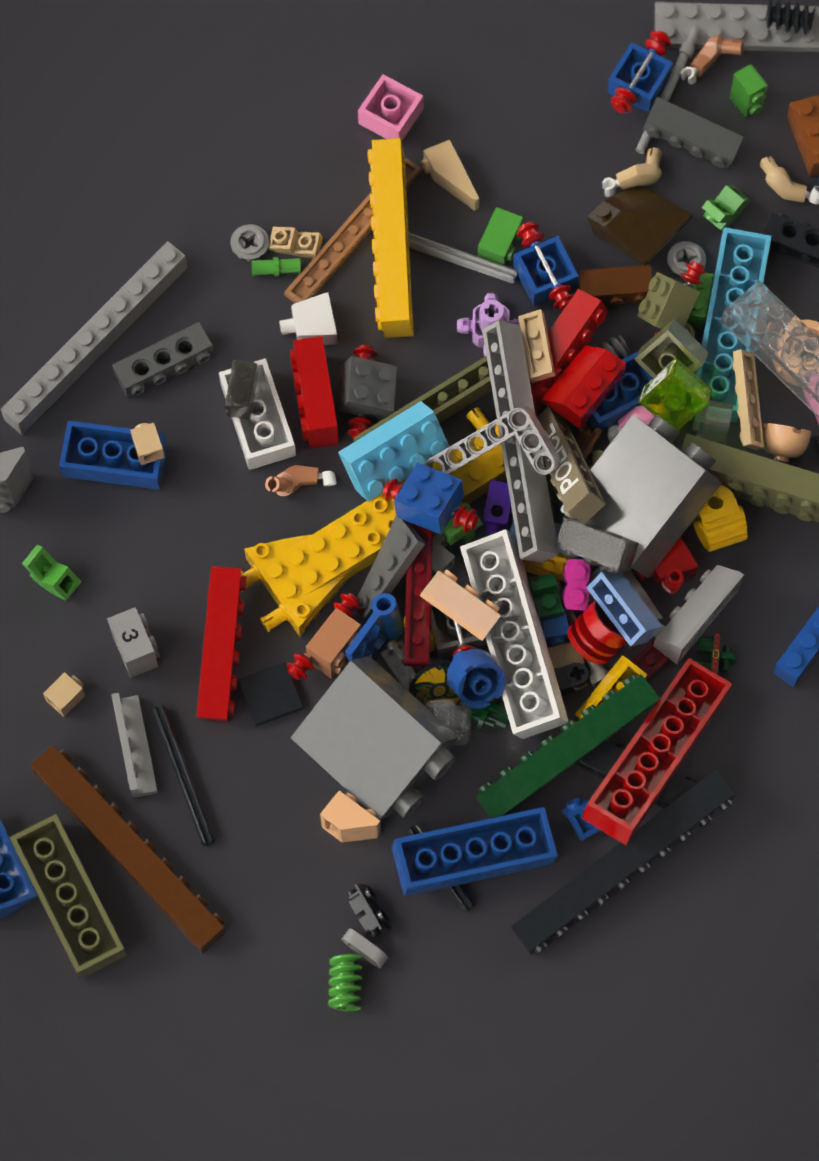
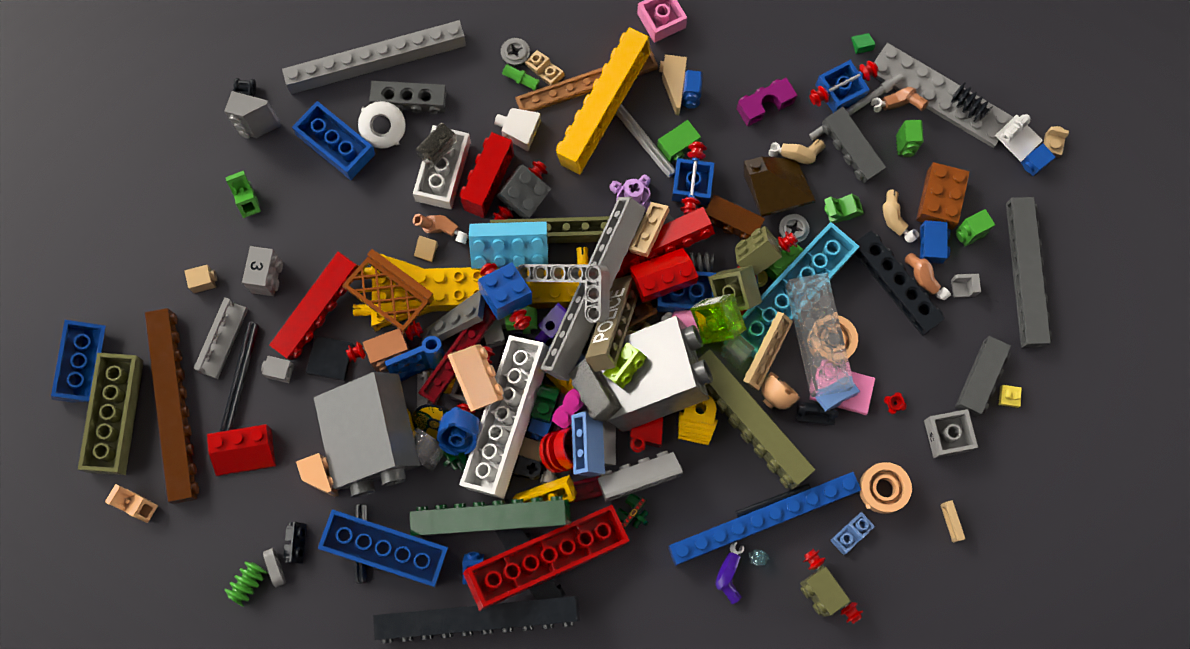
camera: 30 degrees right, 5 degrees up
(147, 443) = (353, 145): tan brick -> none
(160, 977) = (131, 503): none -> light nougat brick
(178, 403) = (386, 109): none -> white piece
(221, 739) = (277, 369): none -> light grey brick
(241, 848) = (241, 450): none -> red slope
(295, 555) = (401, 280): none -> dark orange fence
(297, 513) = (425, 248): none -> tan slope
(479, 170) = (692, 89): none -> blue brick
(575, 123) = (778, 93): none -> magenta arch
(615, 492) = (627, 364): none -> lime bracket
(629, 17) = (863, 43): none -> green slope

